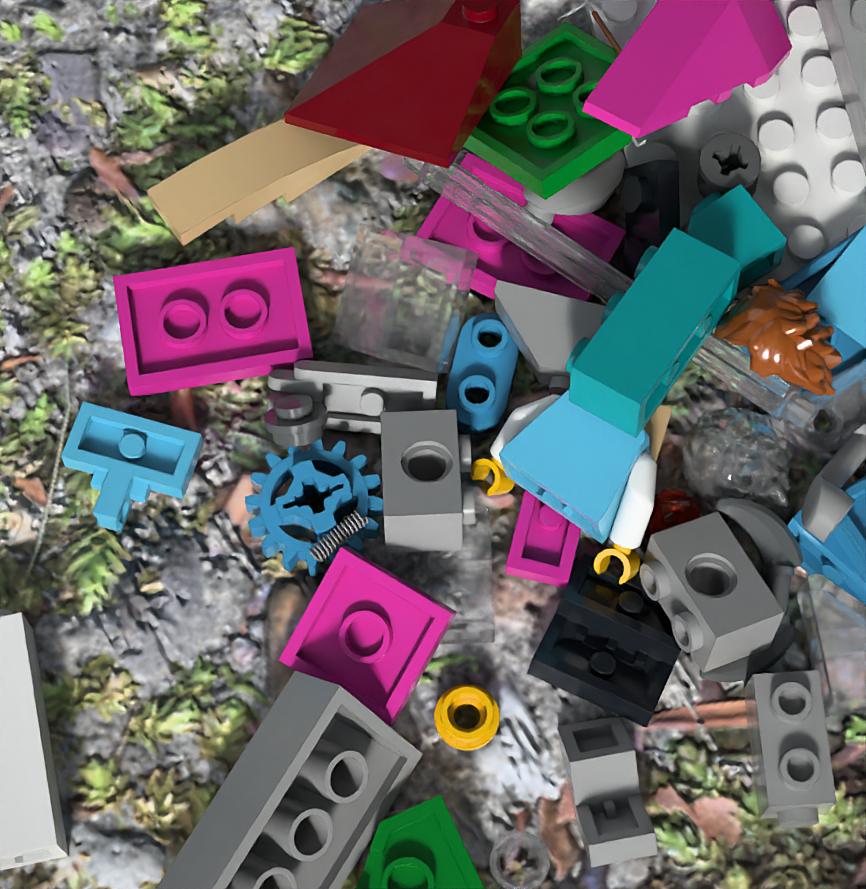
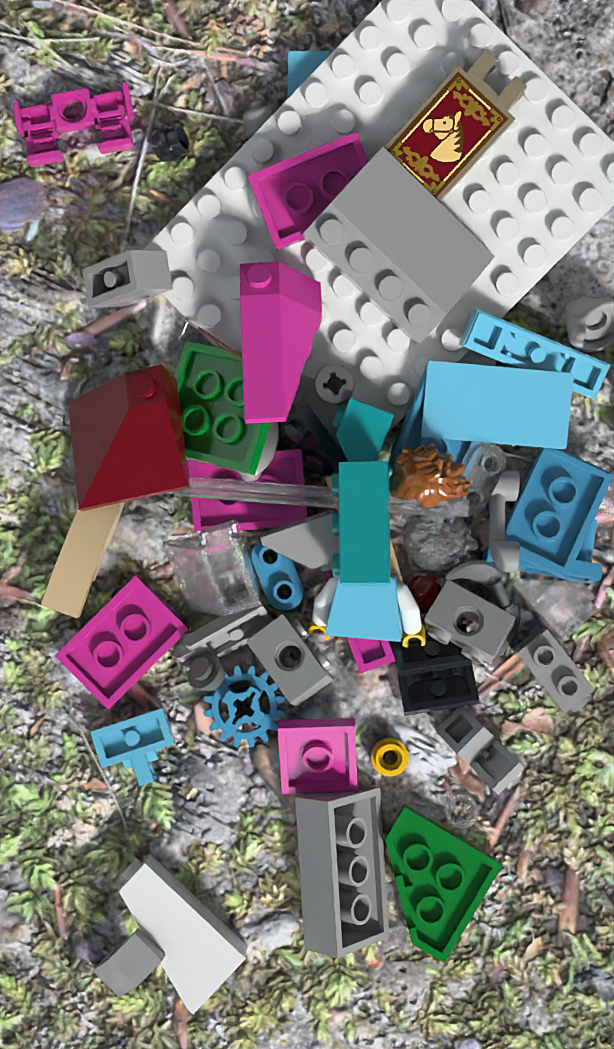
camera: 40 degrees left, 20 degrees up
(339, 541) = (266, 719): light grey leg -> none

